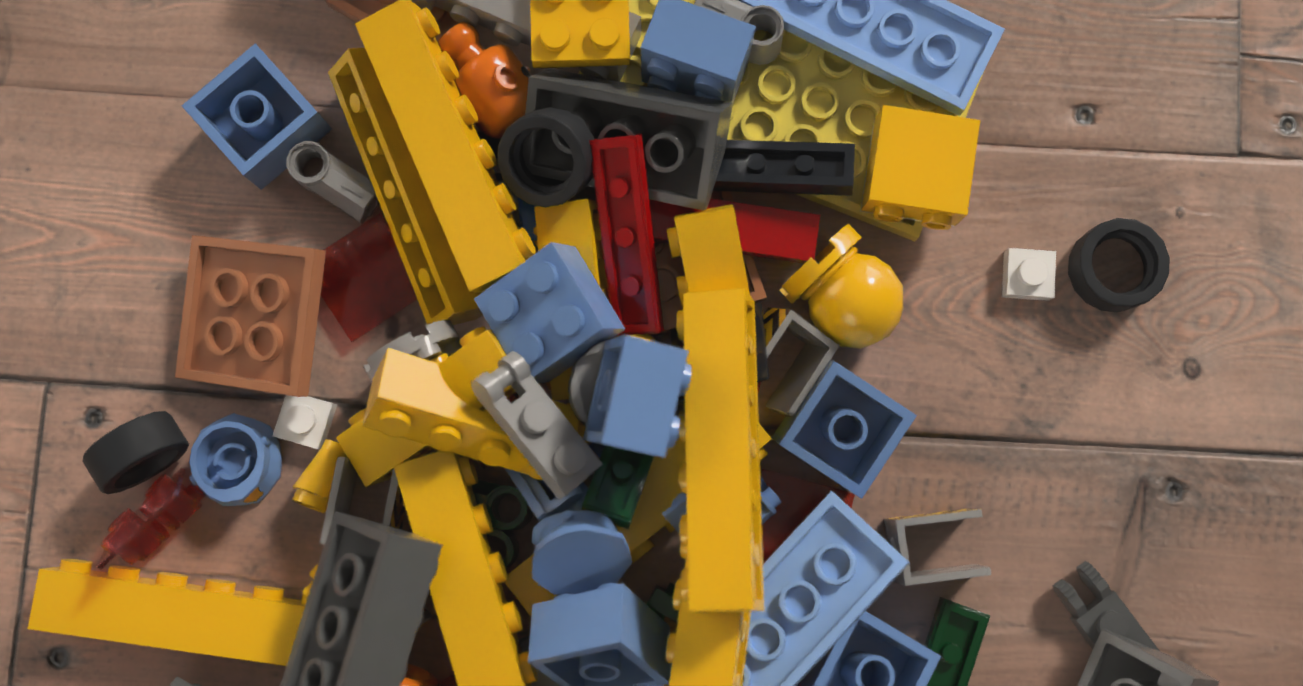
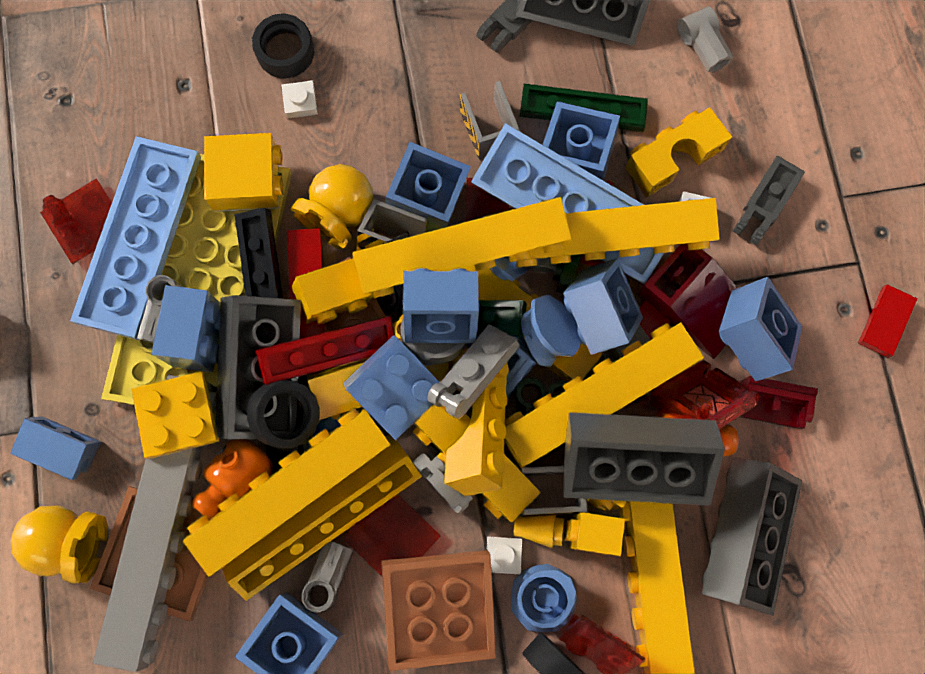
camera: 105 degrees left, 5 degrees down
(285, 547) = (595, 533): none -> yellow brick

